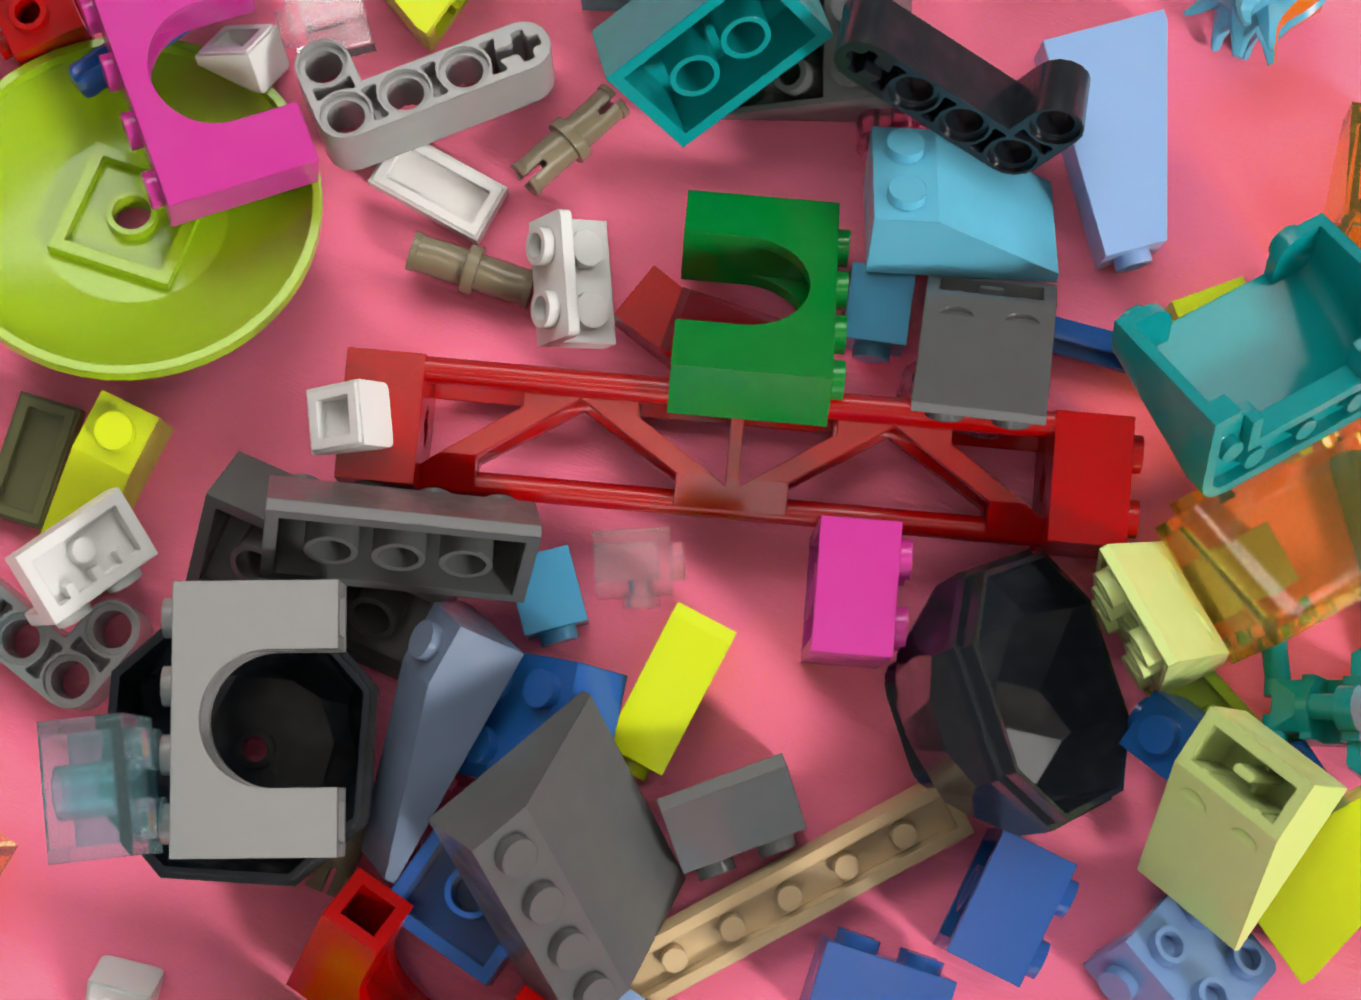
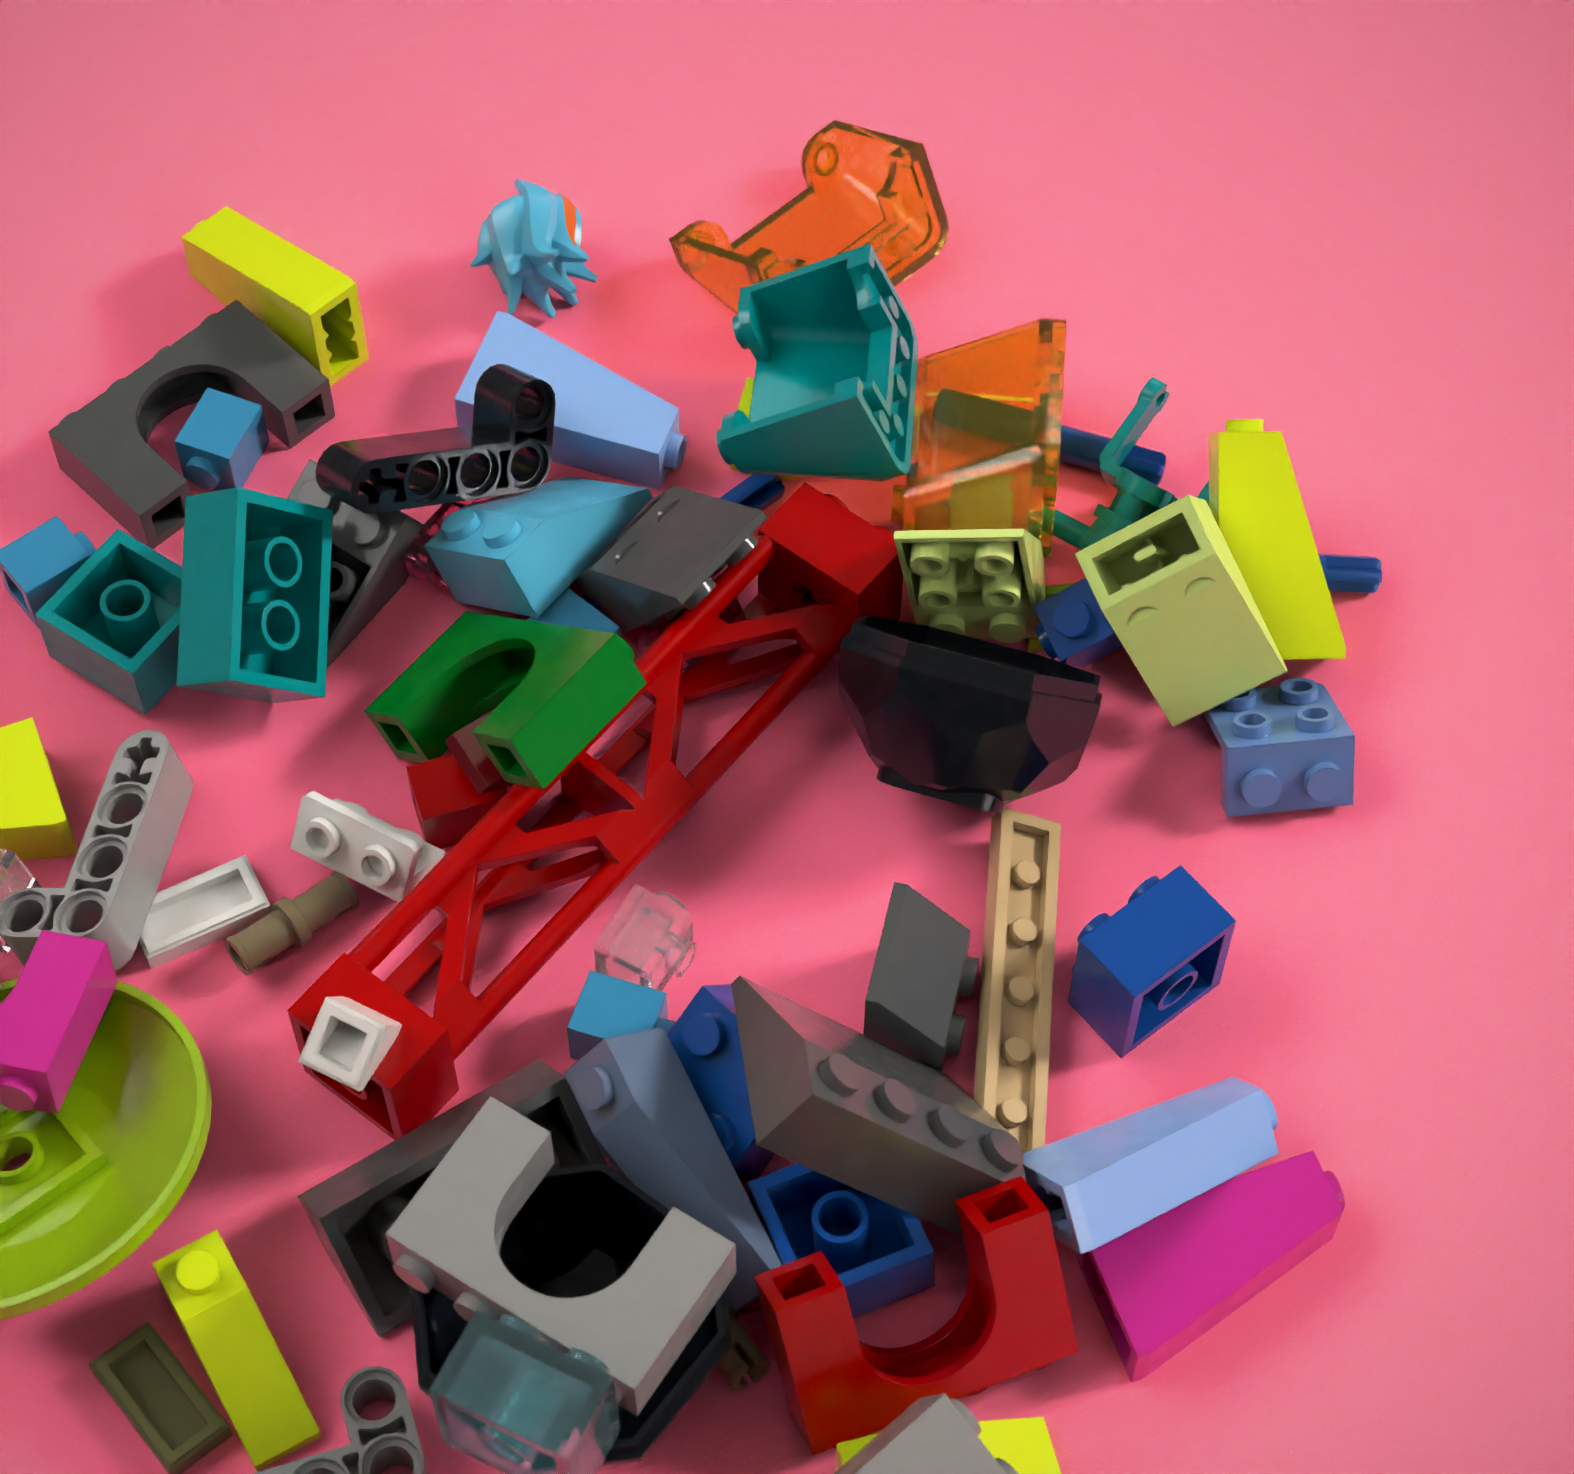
camera: 55 degrees left, 25 degrees down
(80, 559) = (294, 1371): white bracket -> none
(399, 538) = (502, 1047): dark grey slope -> none
(570, 139) = (245, 784): dark tan pin -> none
(670, 689) = (762, 939): neon yellow slope -> none
(854, 592) = (796, 767): dark pink brick -> none
(1008, 906) = (1136, 813): blue brick -> none

